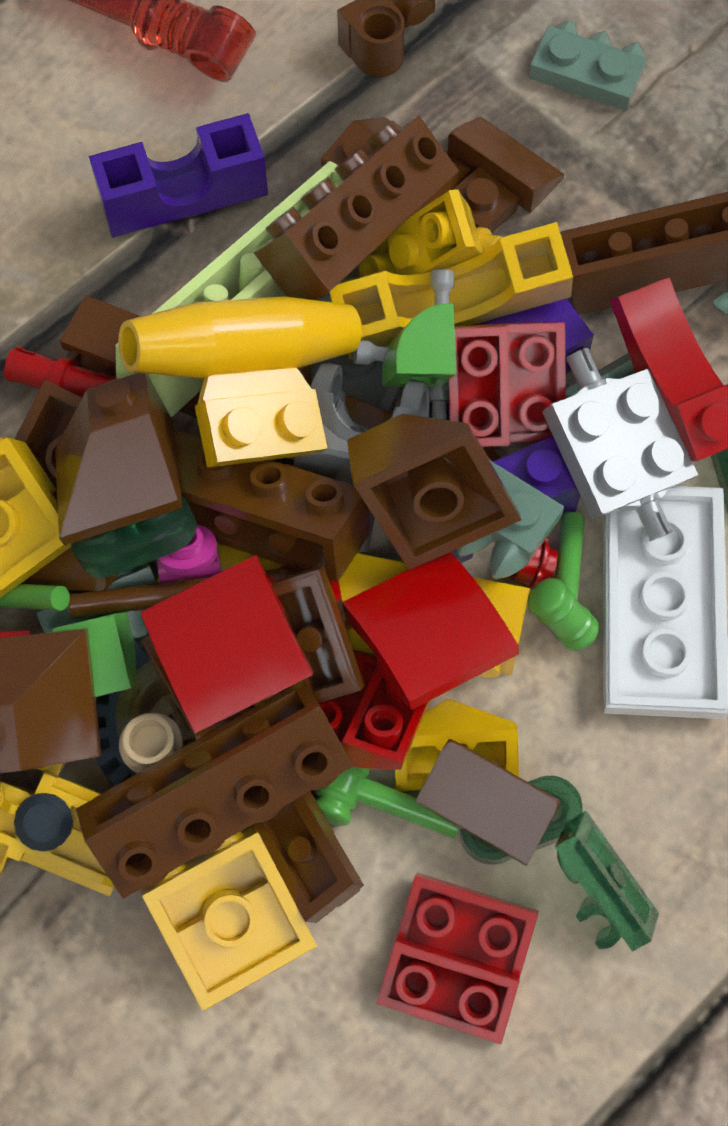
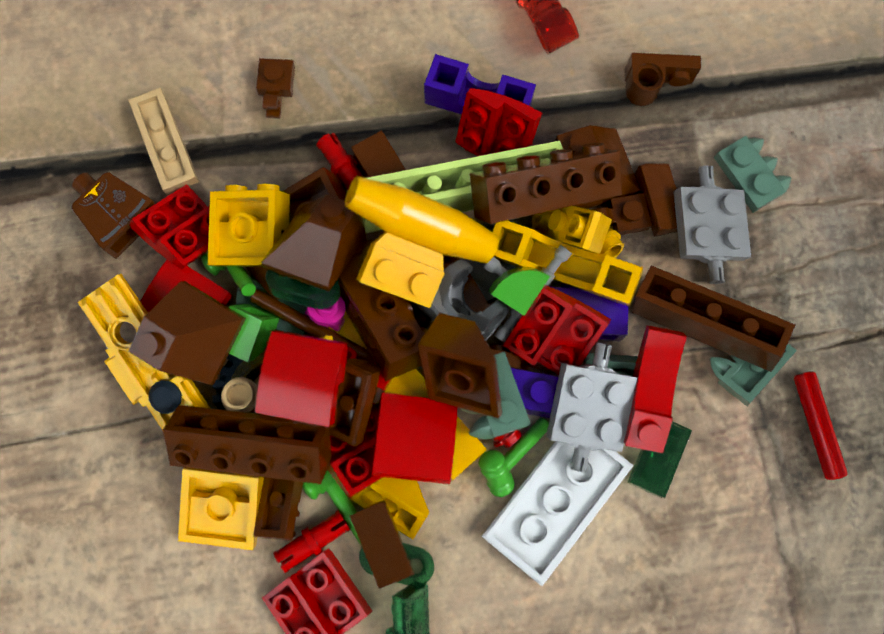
camera: 35 degrees right, 10 degrees up
(229, 191) = (495, 123): none -> red slope
(387, 878) = (311, 541): none -> red pin
(589, 149) = (712, 224): none -> light grey plate

